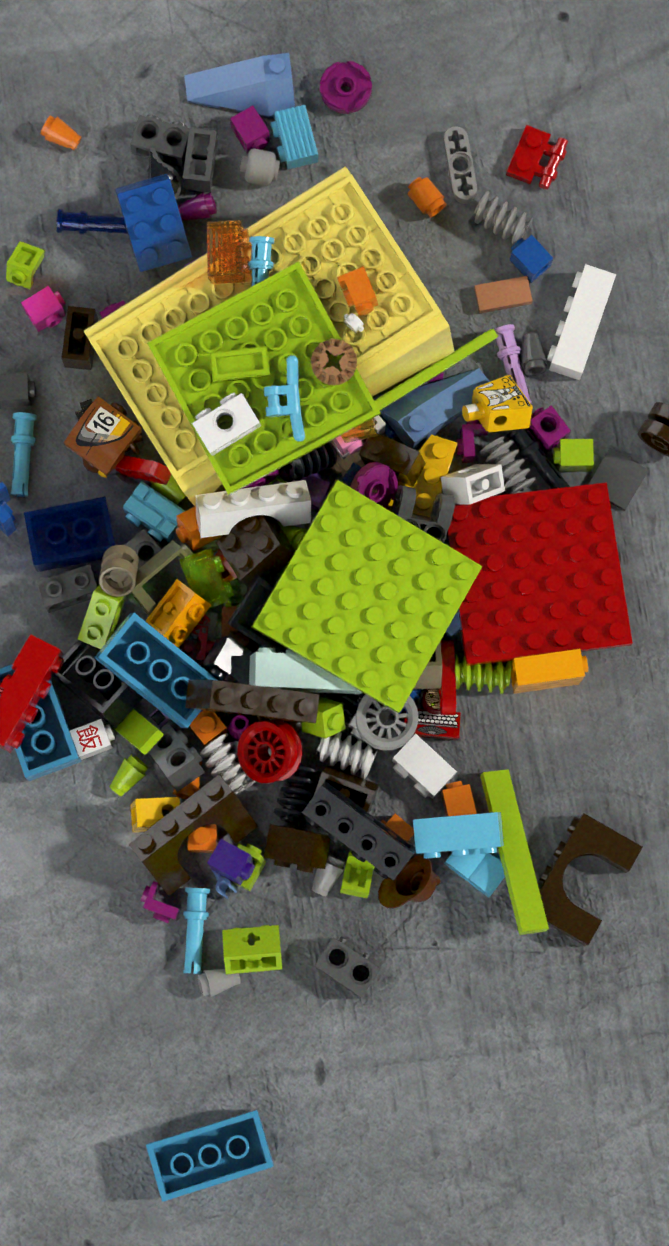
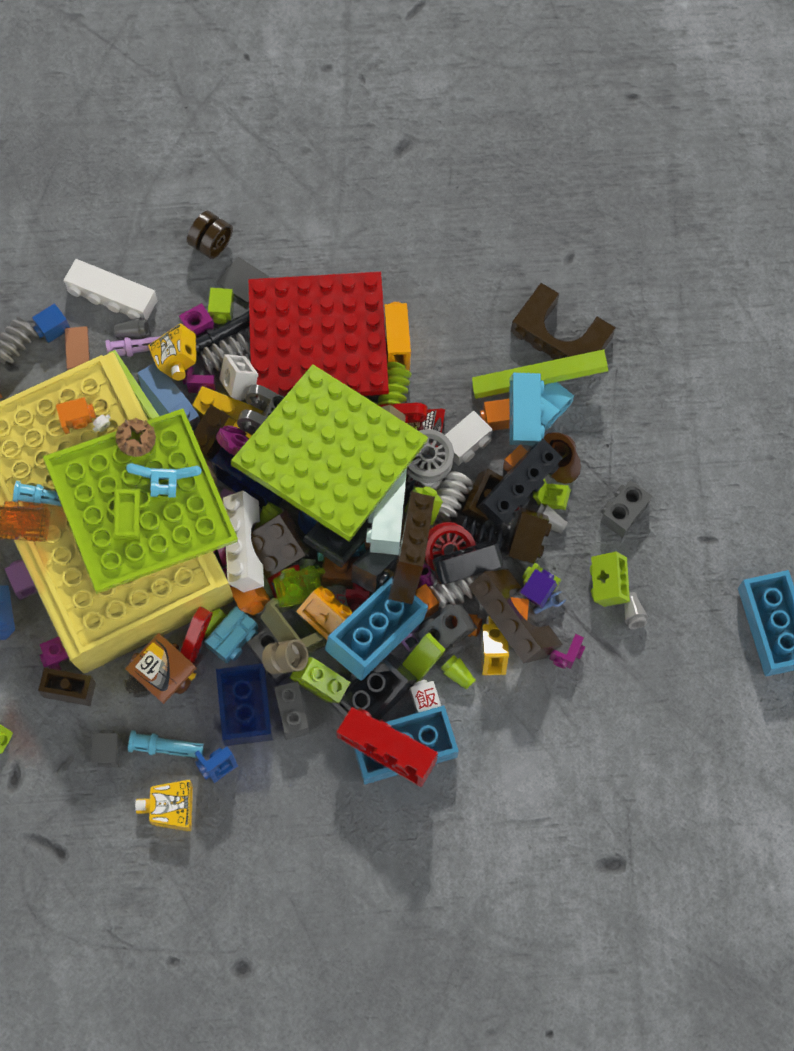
camera: 85 degrees left, 10 degrees down
(44, 308) = (35, 718): dark pink brick -> none
(195, 917) = (579, 624): medium azure pin -> none
(243, 423) = (178, 514): white brick -> none
(250, 772) = (467, 562): none -> black beam

